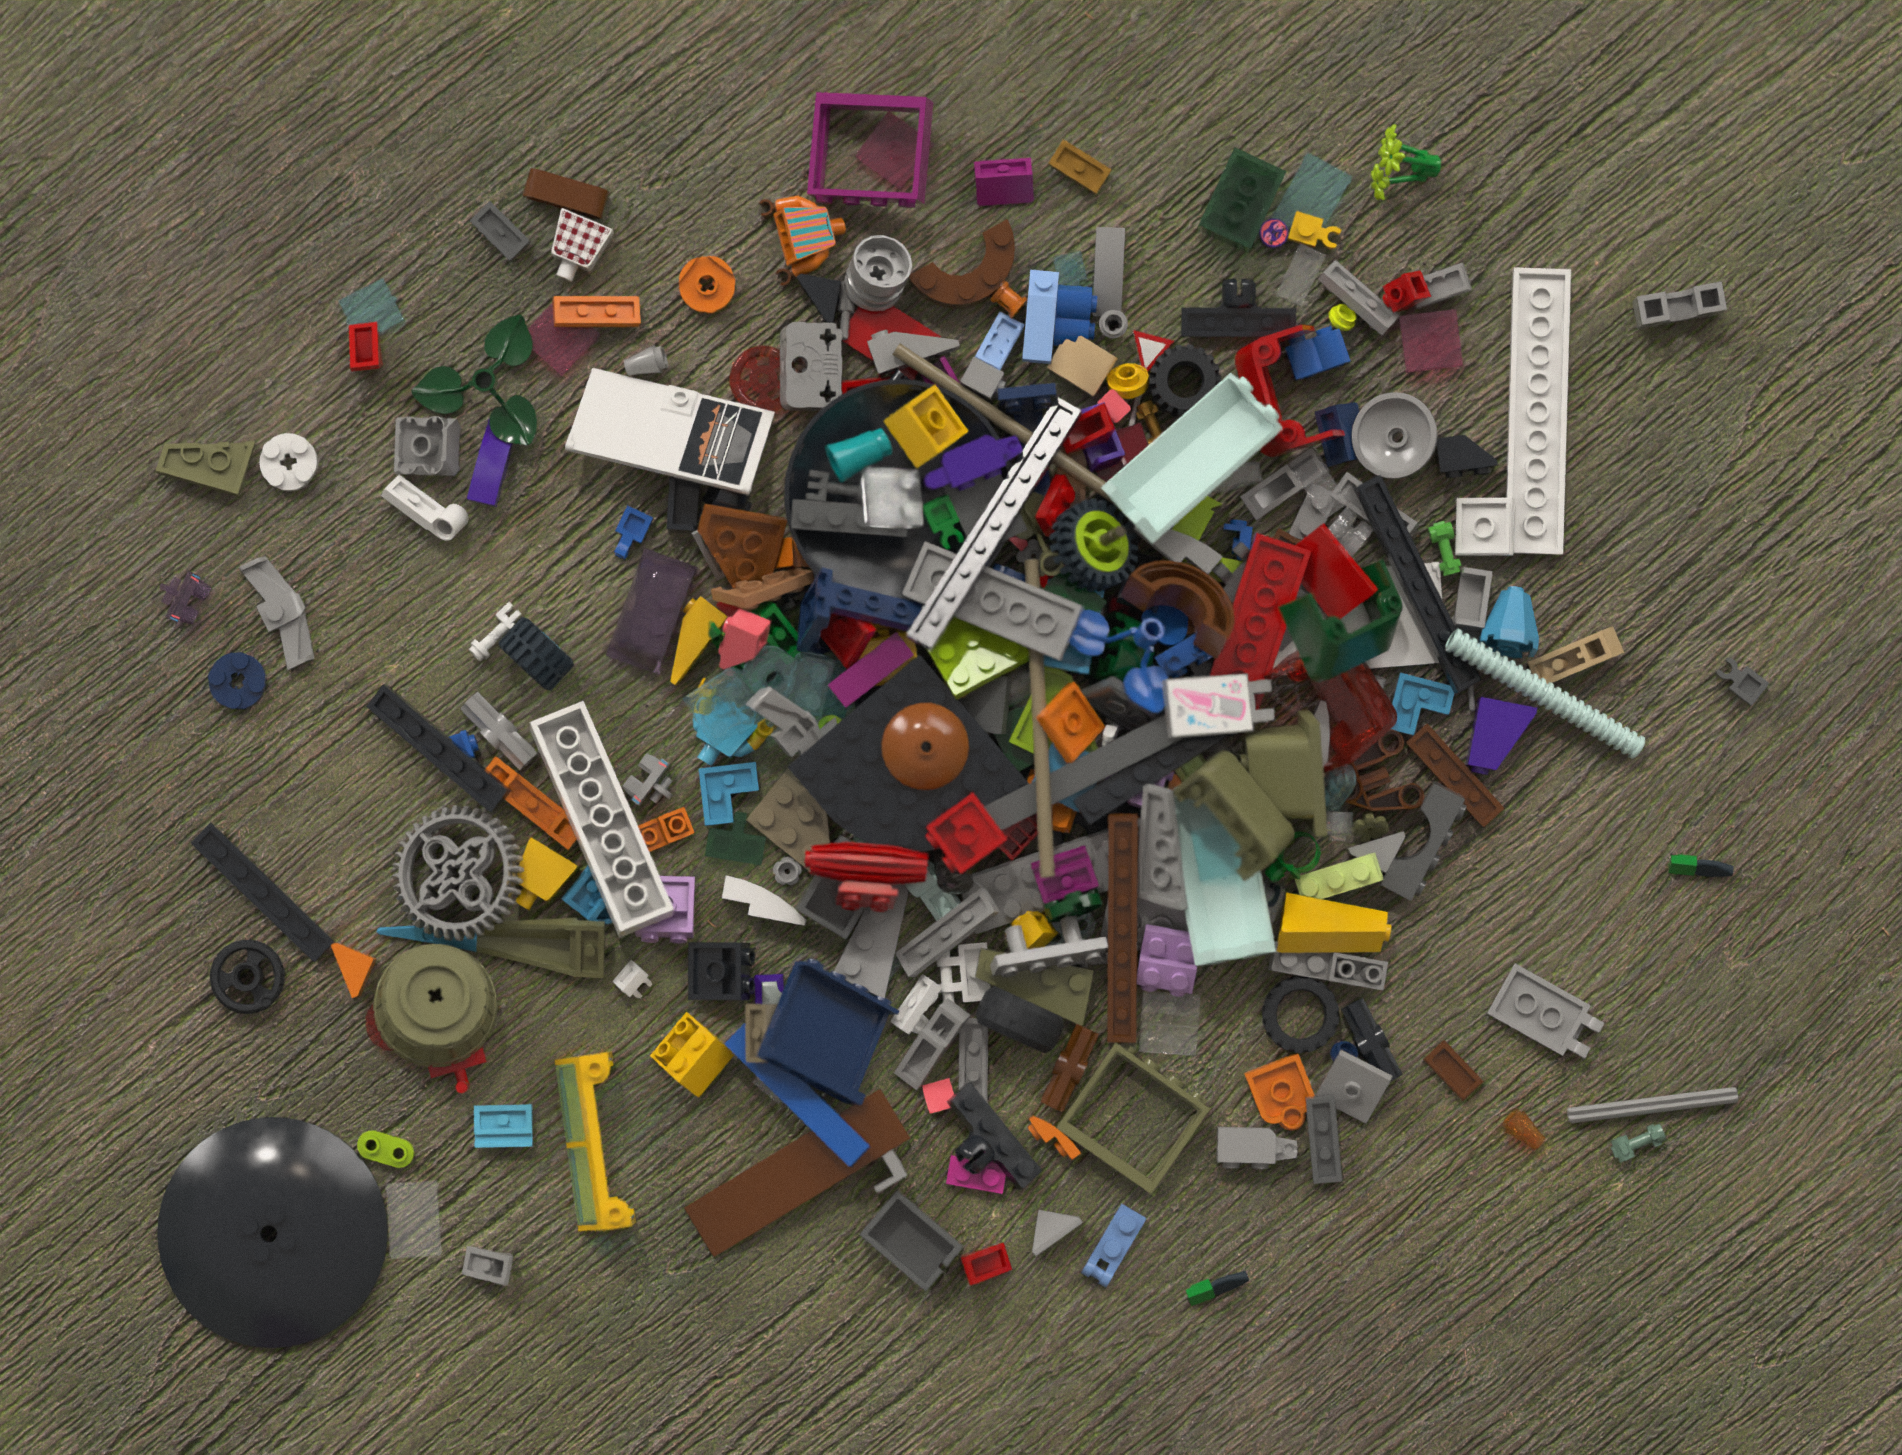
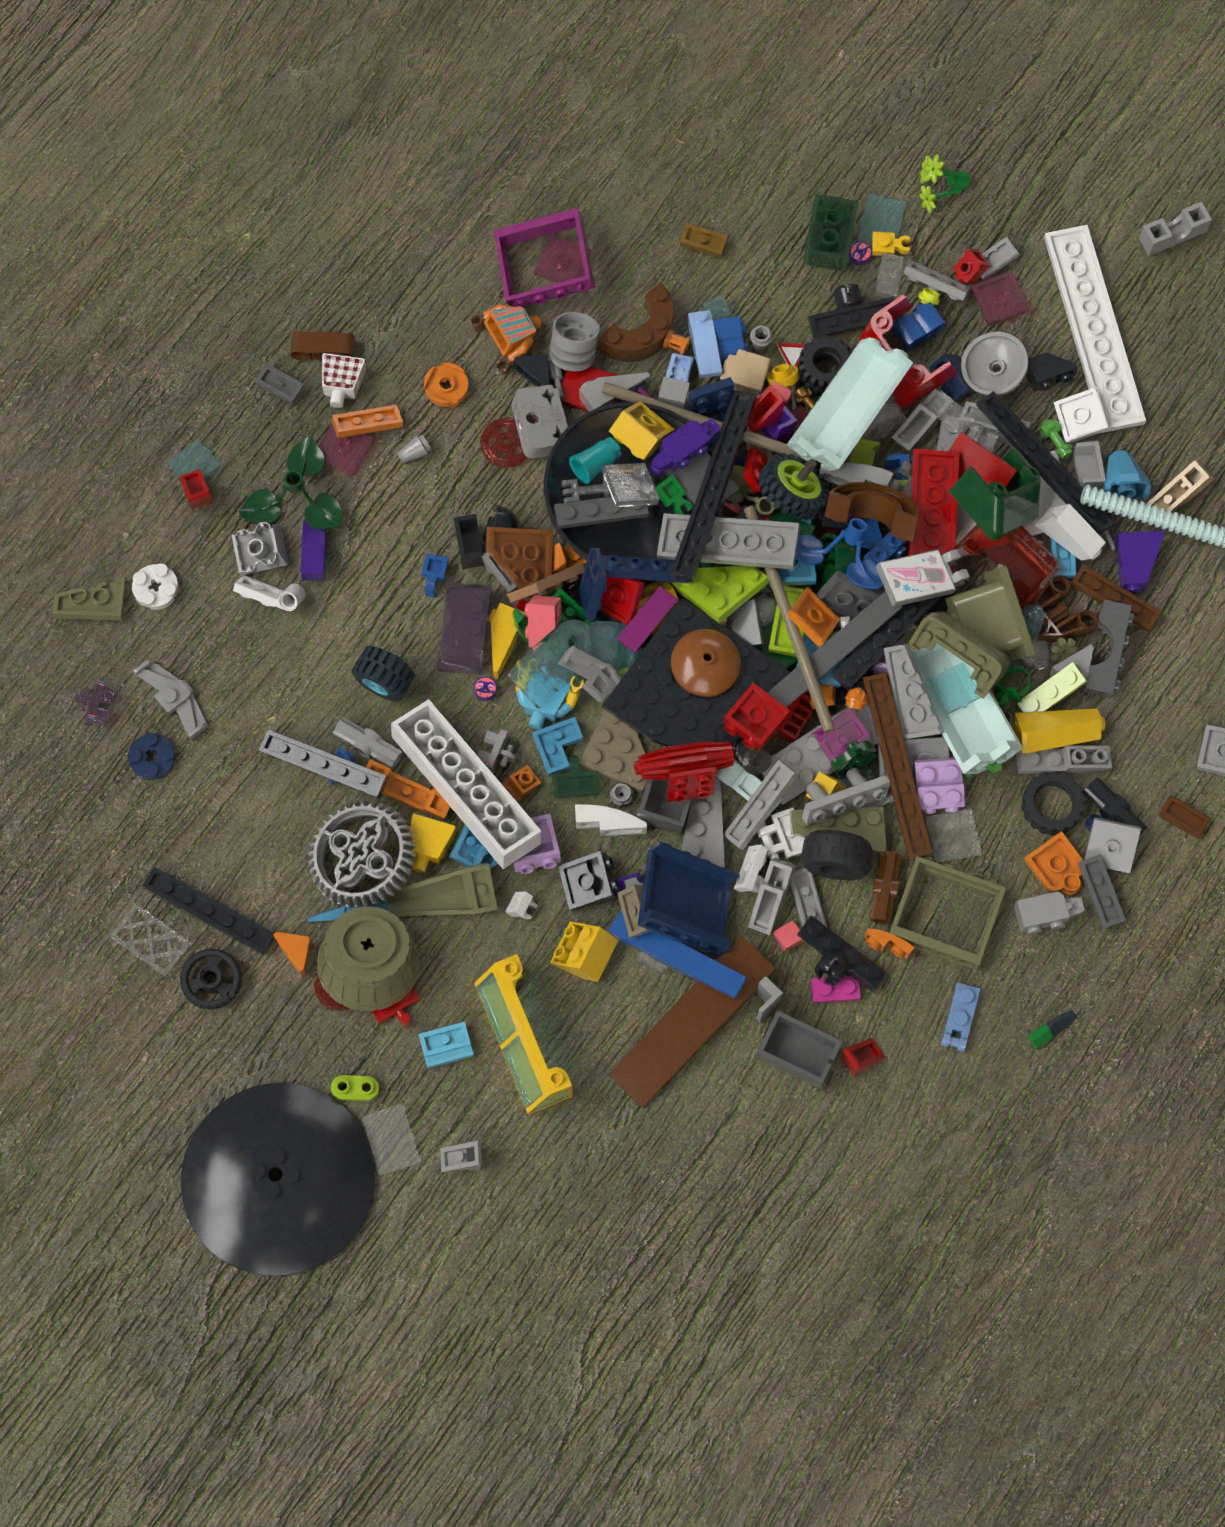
camera: 15 degrees left, 15 degrees down
(162, 909) = (150, 920): none -> clear window
(480, 650) = (338, 686): white hinge -> none
(657, 695) = (485, 688): none -> tile
(670, 431) = (445, 489): white door -> none
(1004, 181) = (650, 264): magenta panel -> none
(1051, 1228) = (907, 1015): light grey slope -> none
(1094, 839) = (856, 699): none -> orange plate
(1108, 269) = (745, 300): light grey slope -> none
(1421, 683) = (1071, 531): none -> white slope

